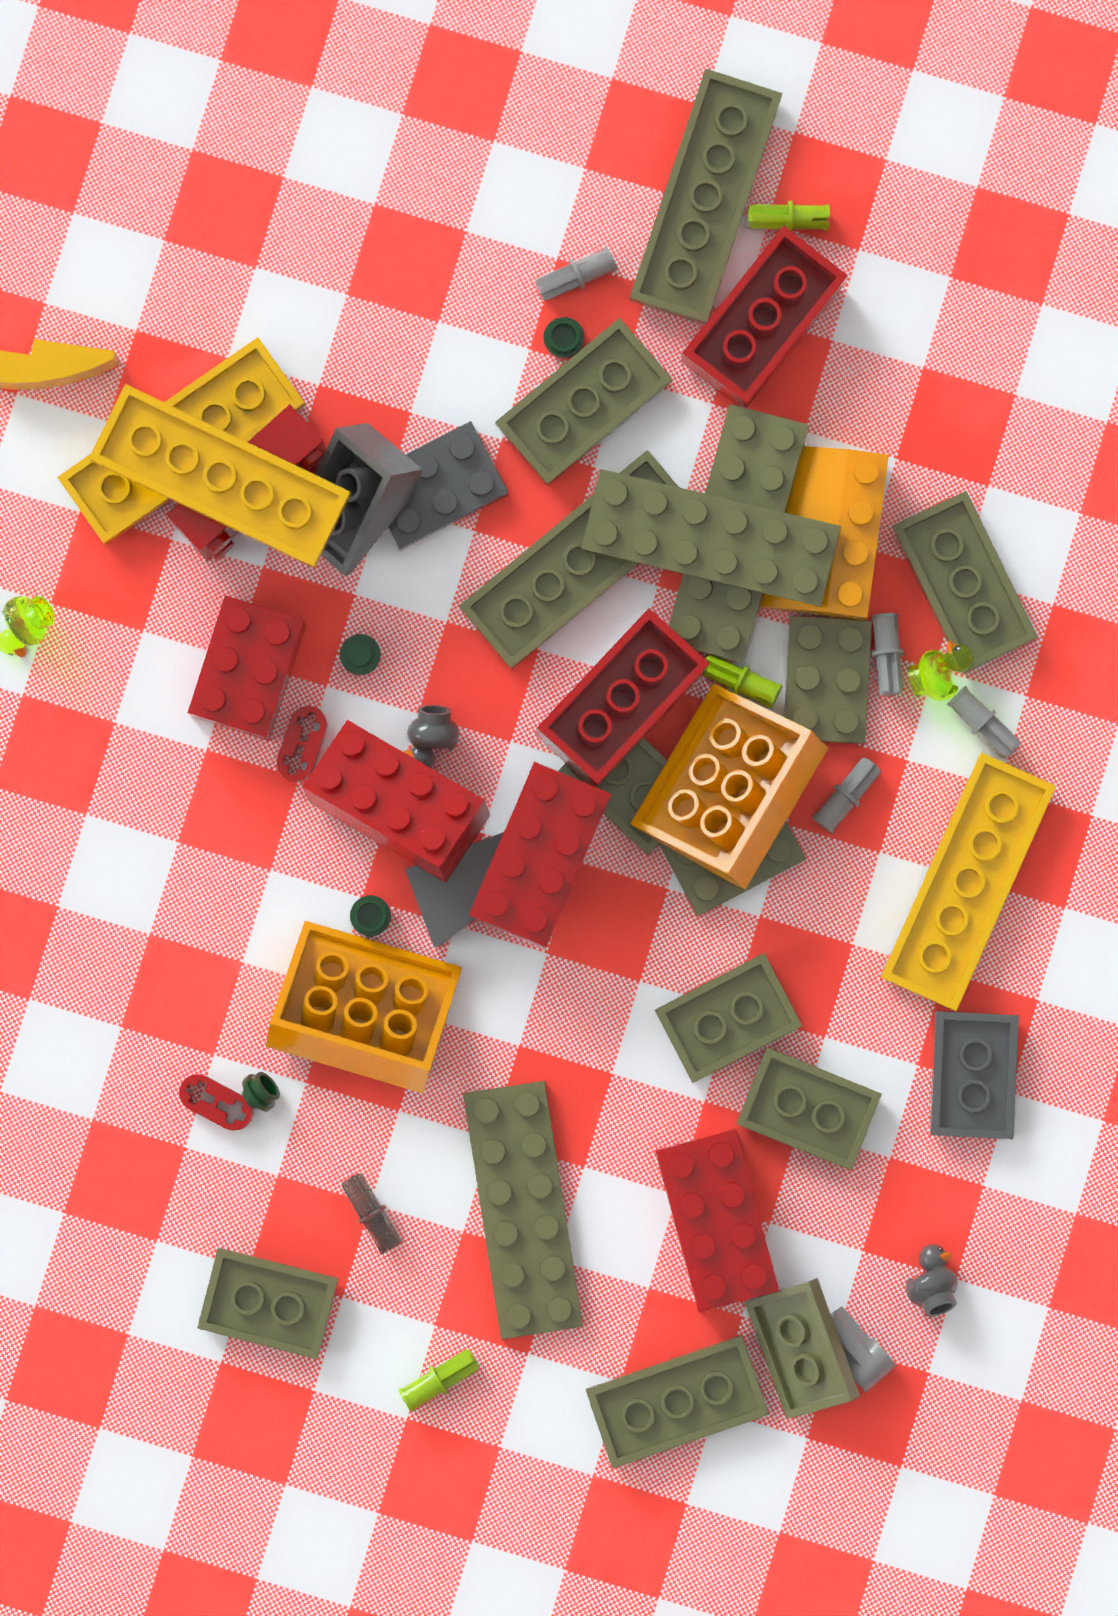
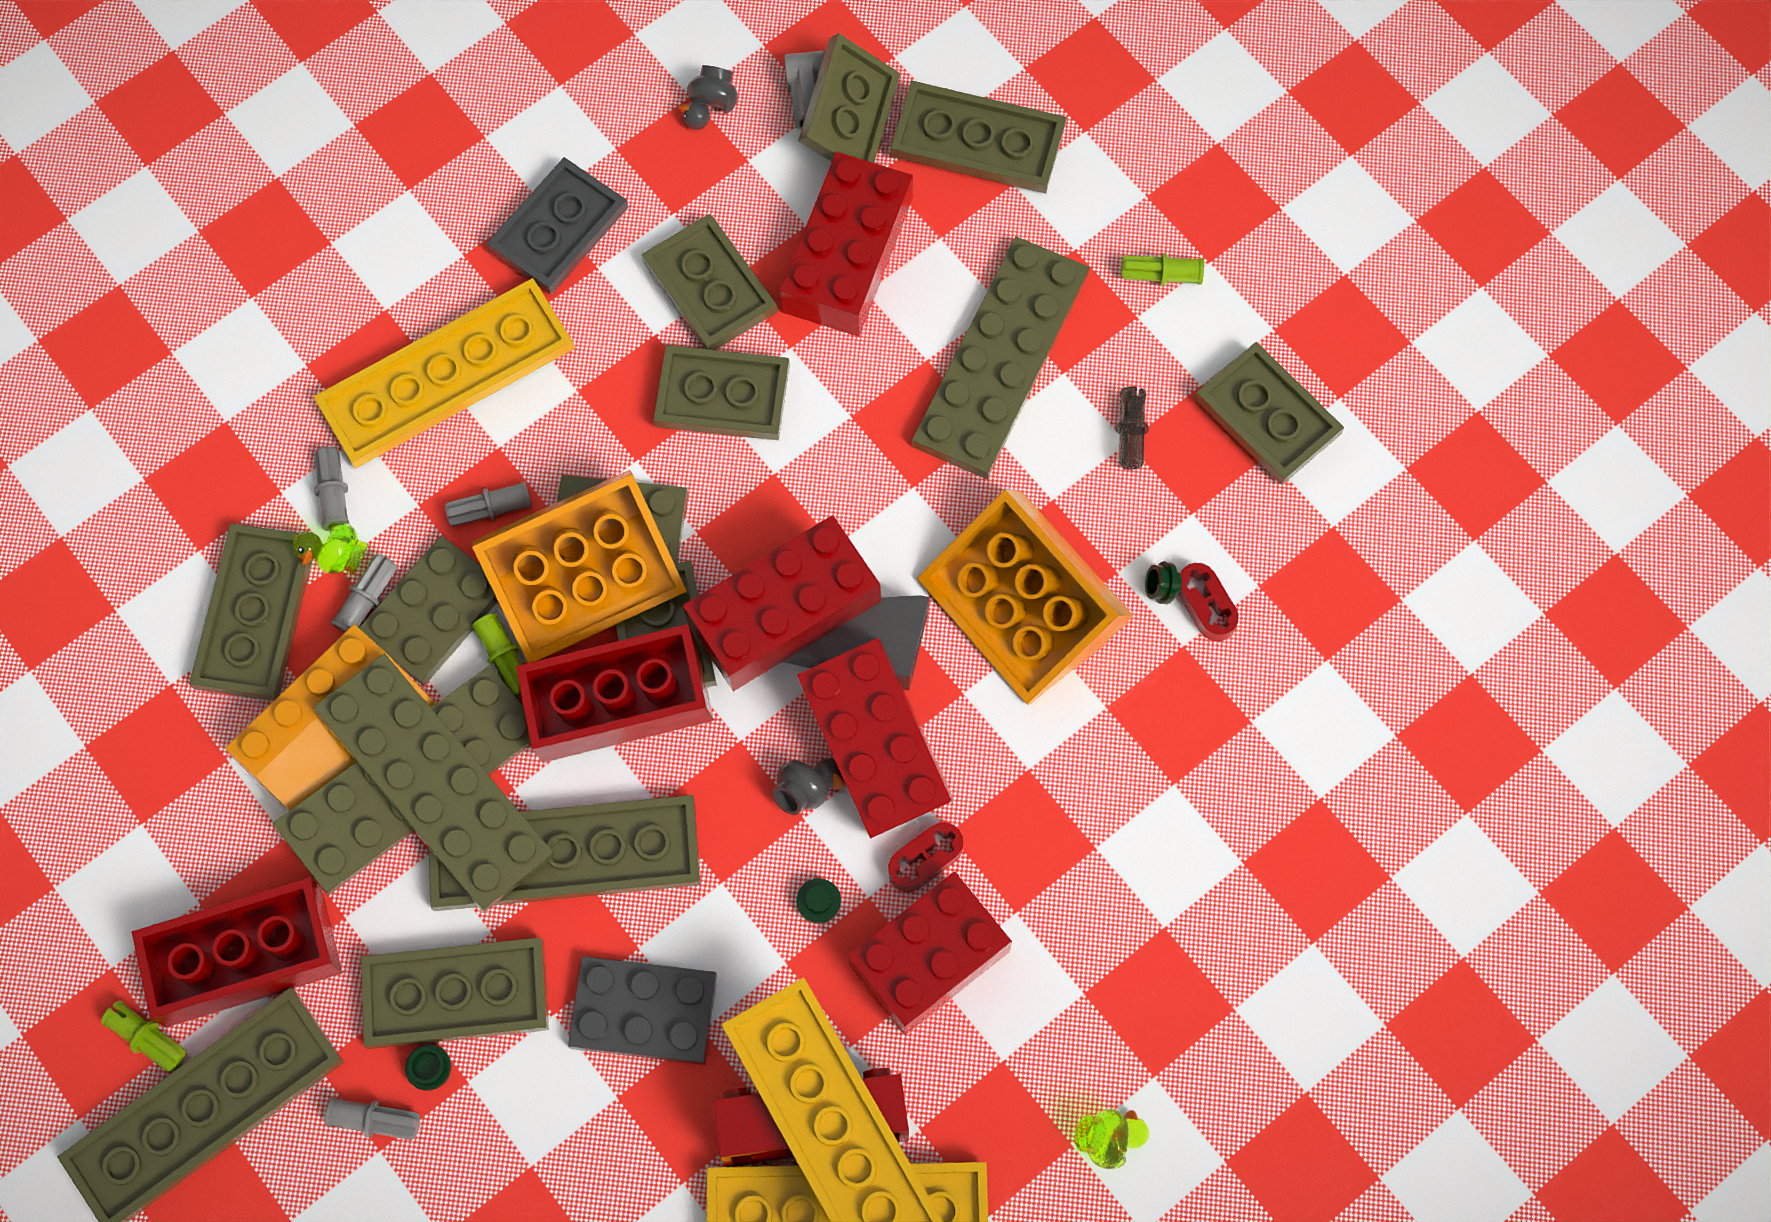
camera: 145 degrees left, 15 degrees down
(370, 916) = (966, 669): dark green plate -> none
(379, 485) = (691, 1048): dark grey slope -> none

